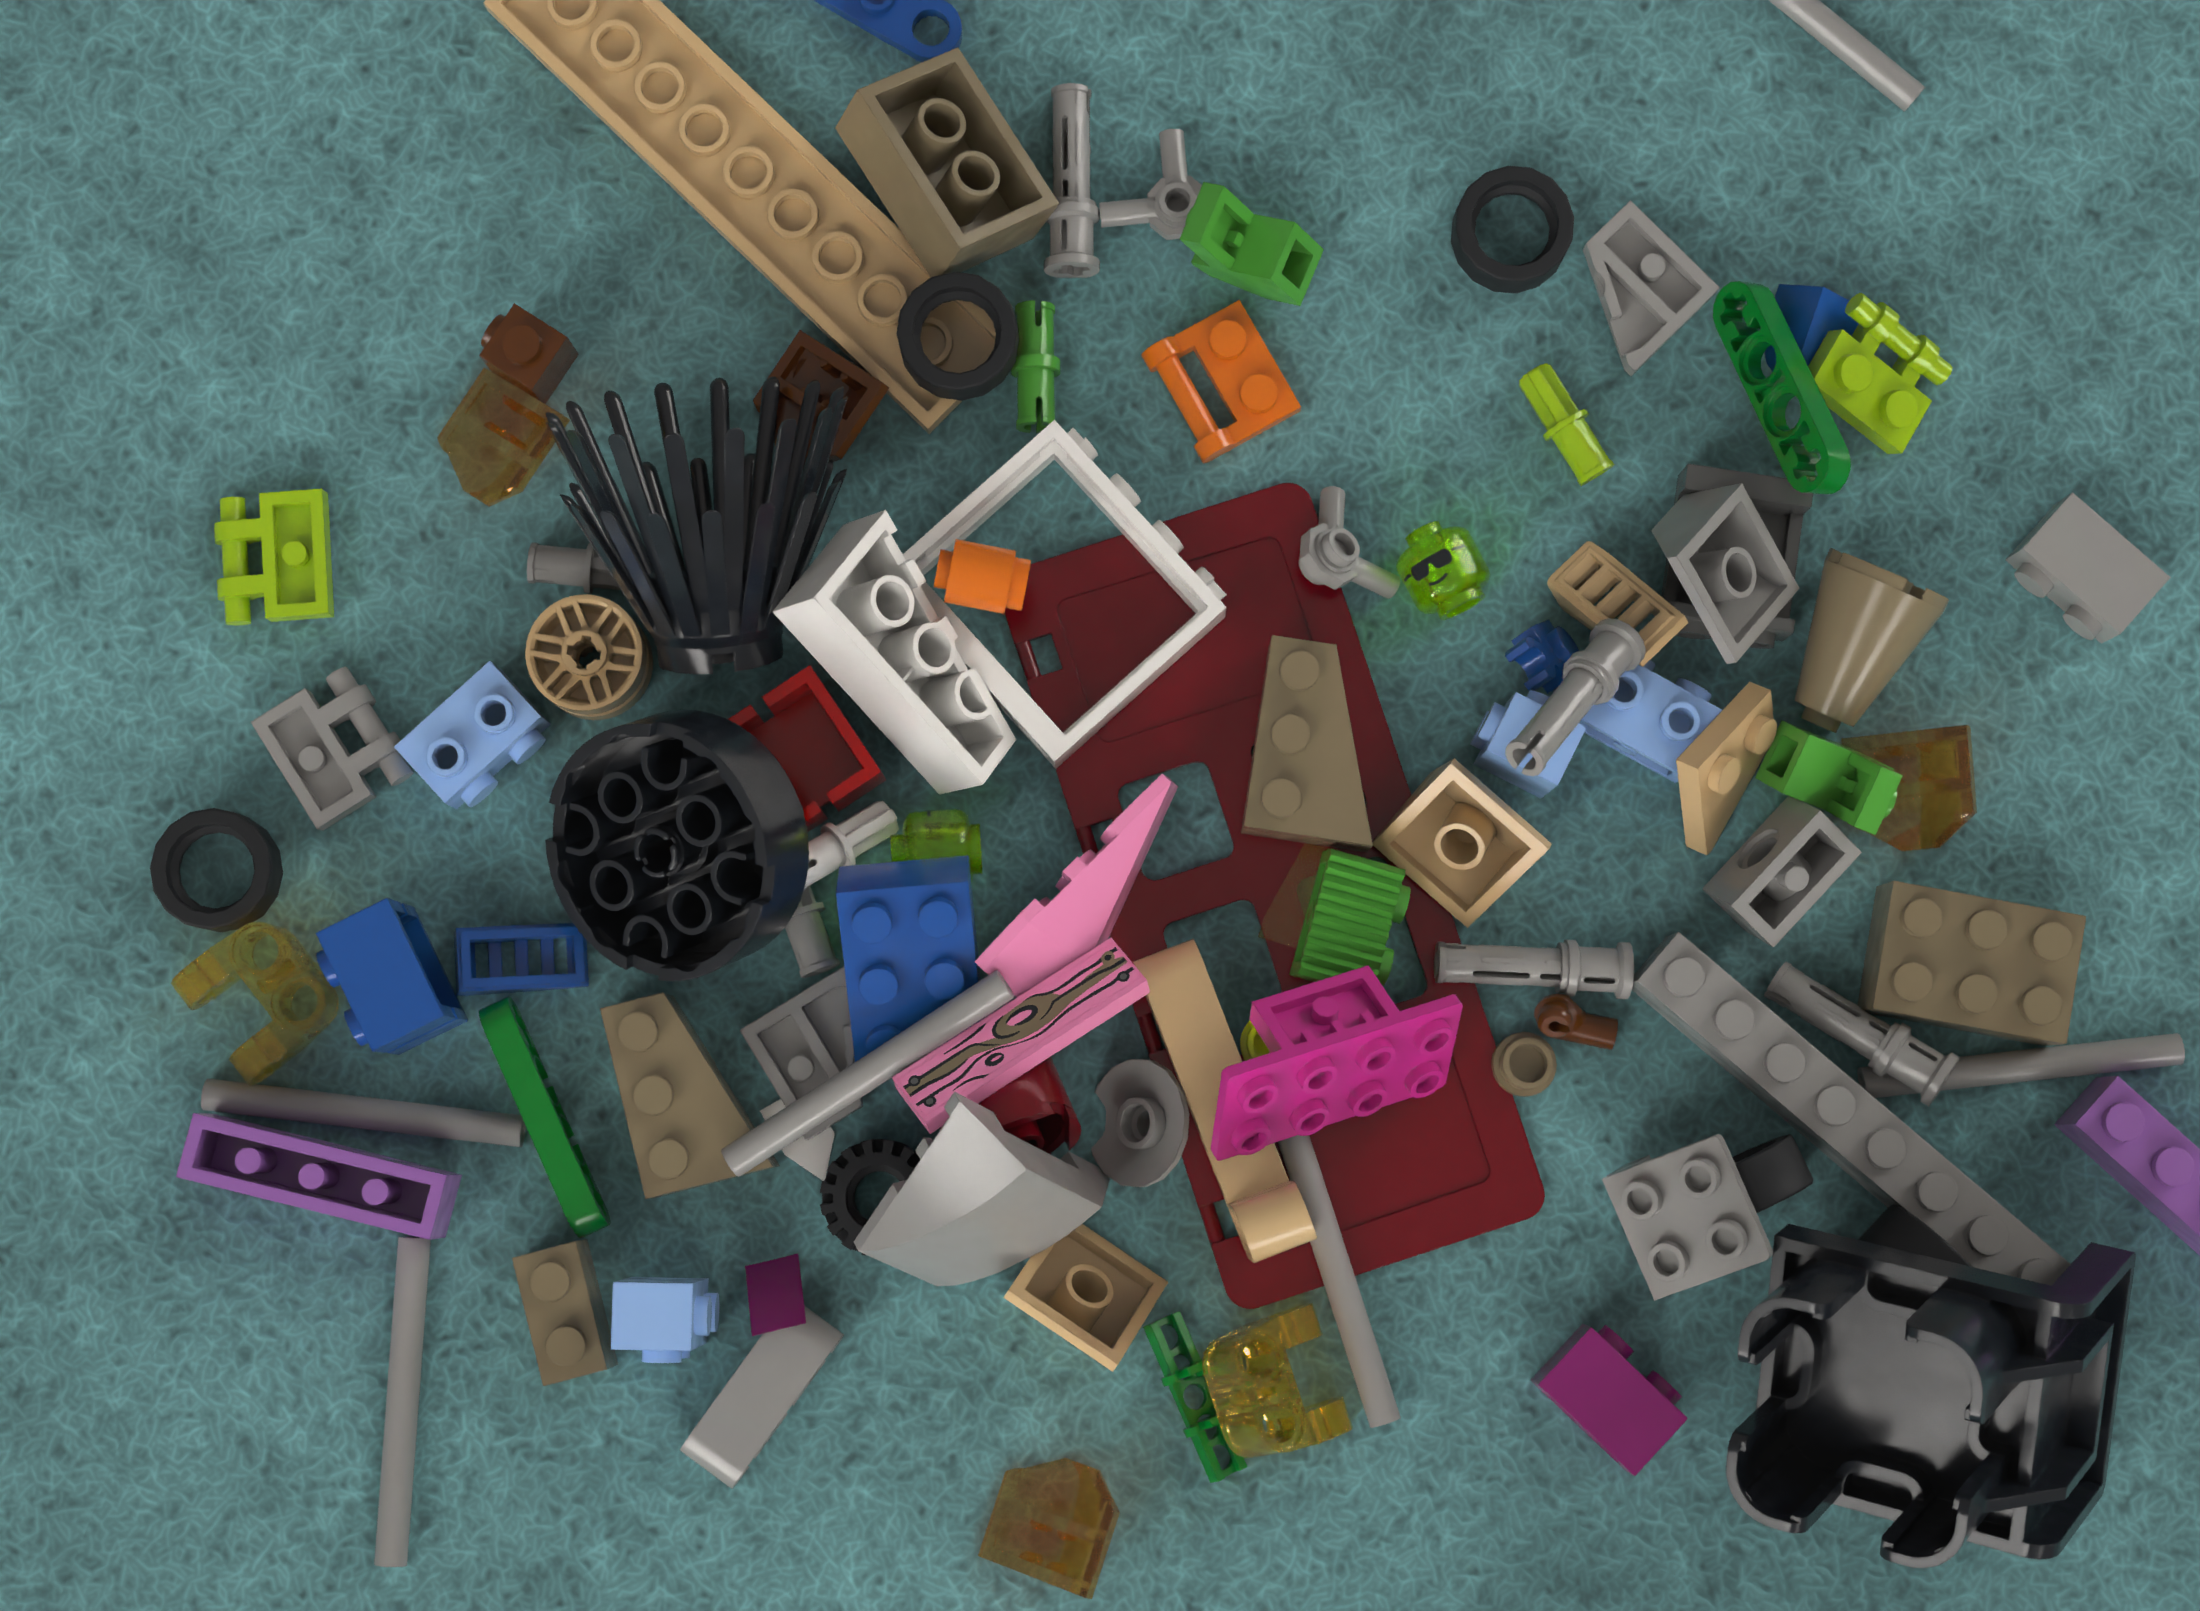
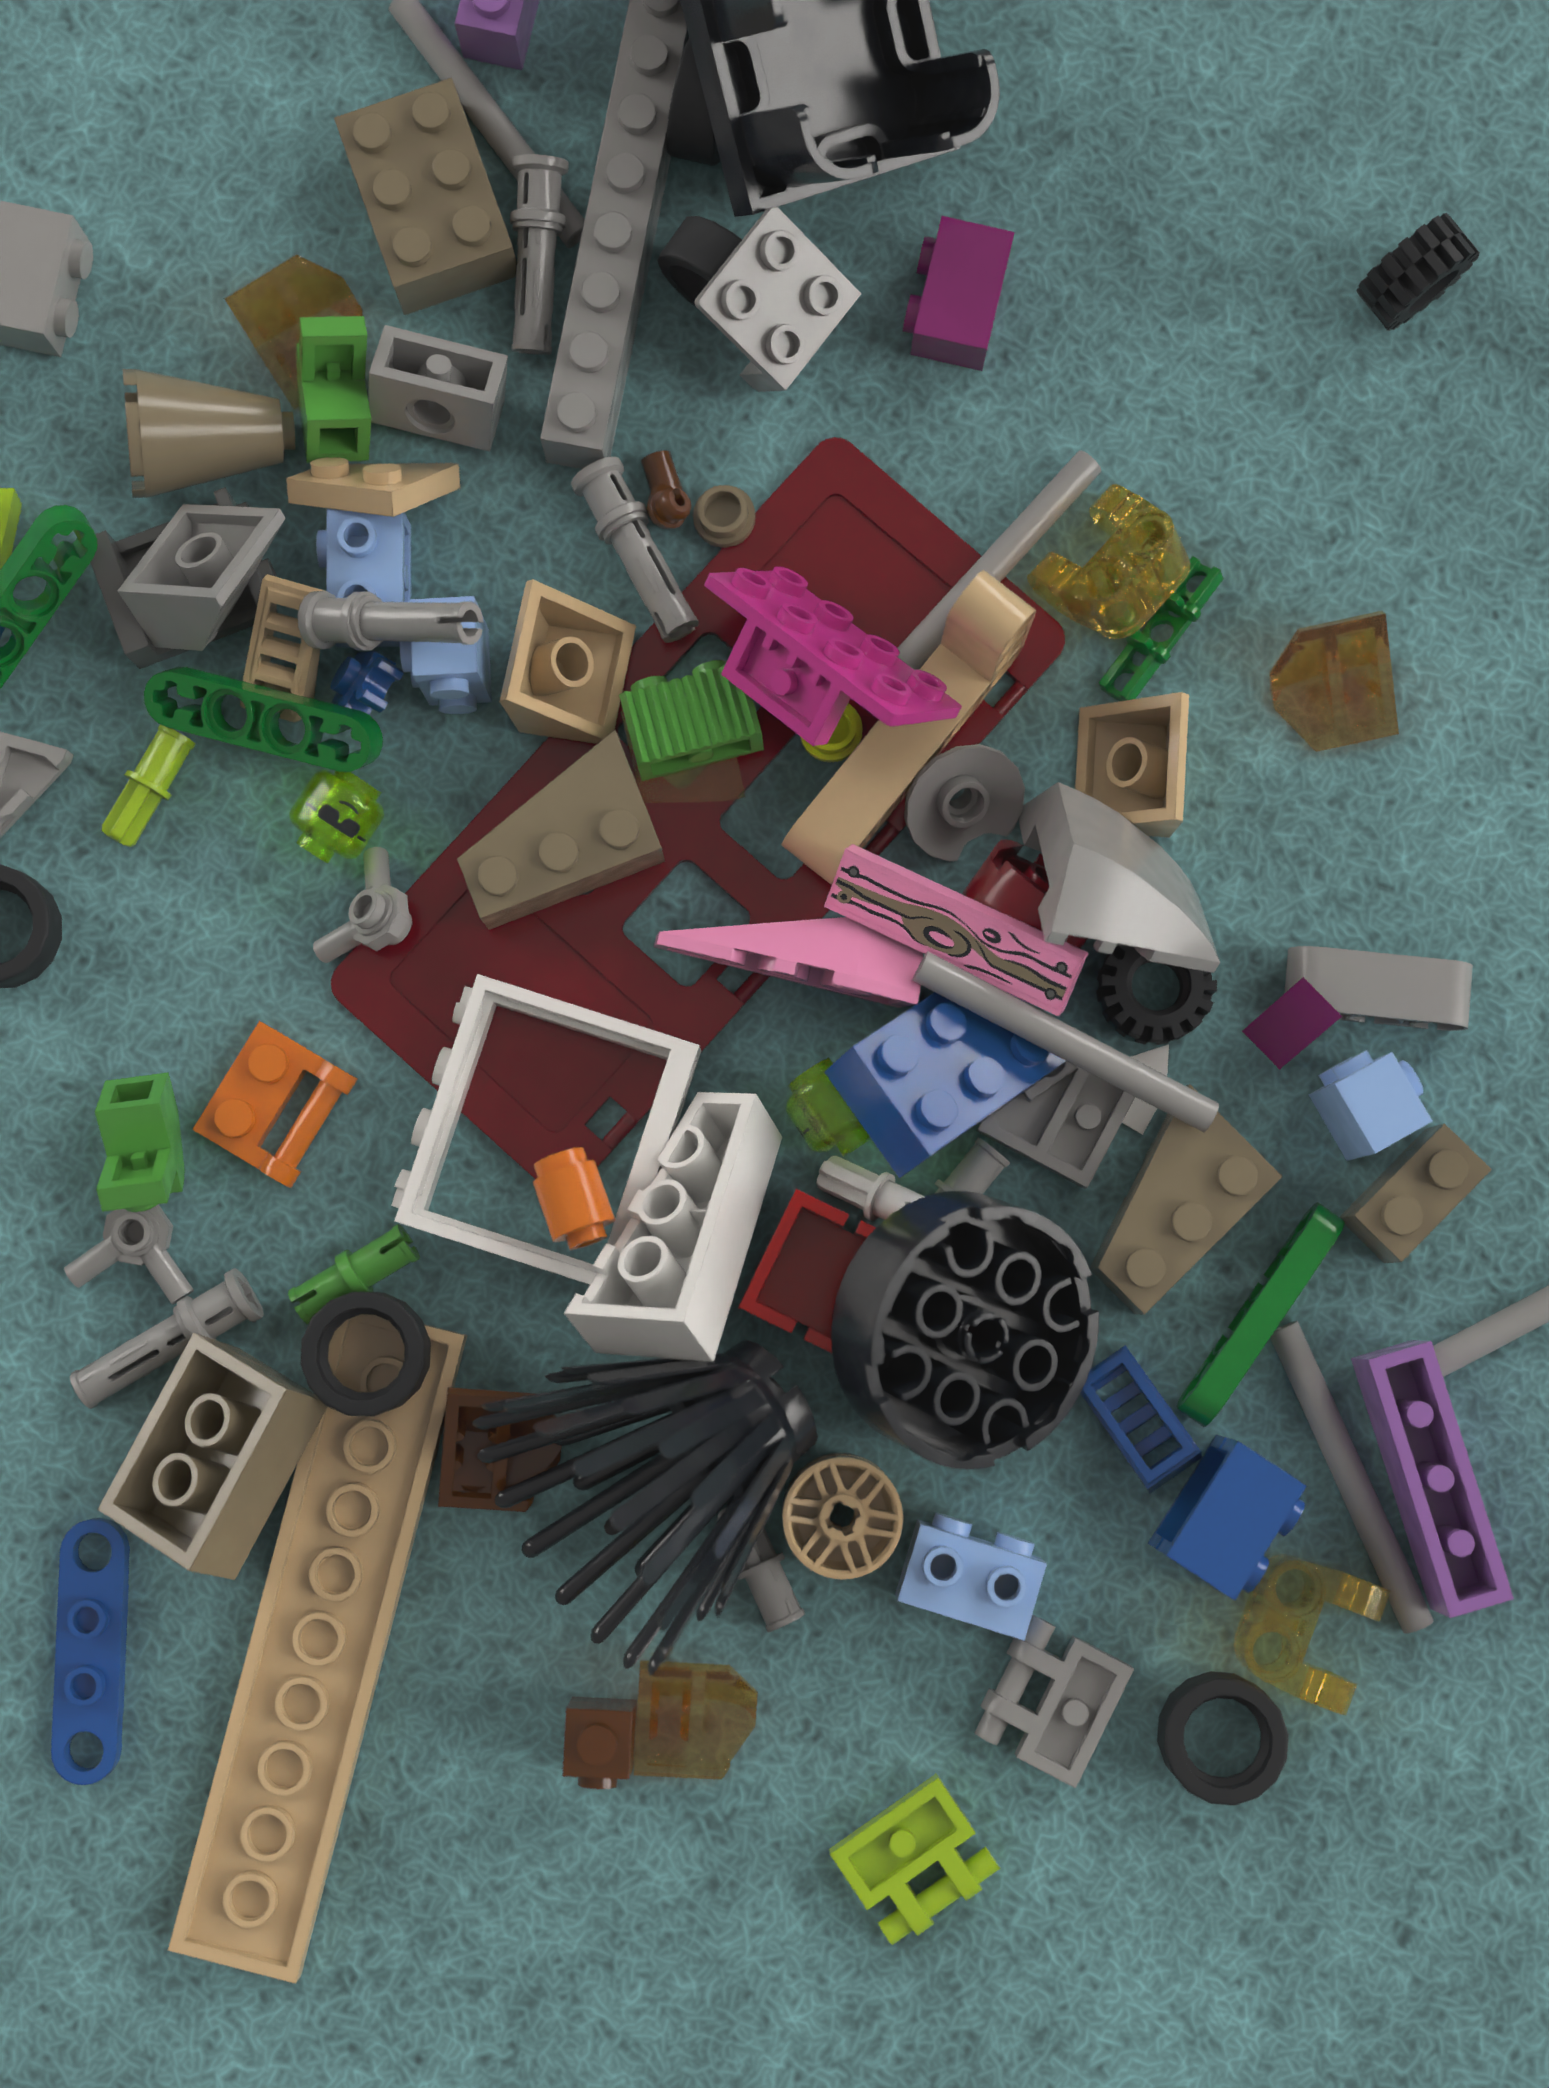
camera: 120 degrees left, 0 degrees up
(1554, 545) = (262, 722): none -> green beam

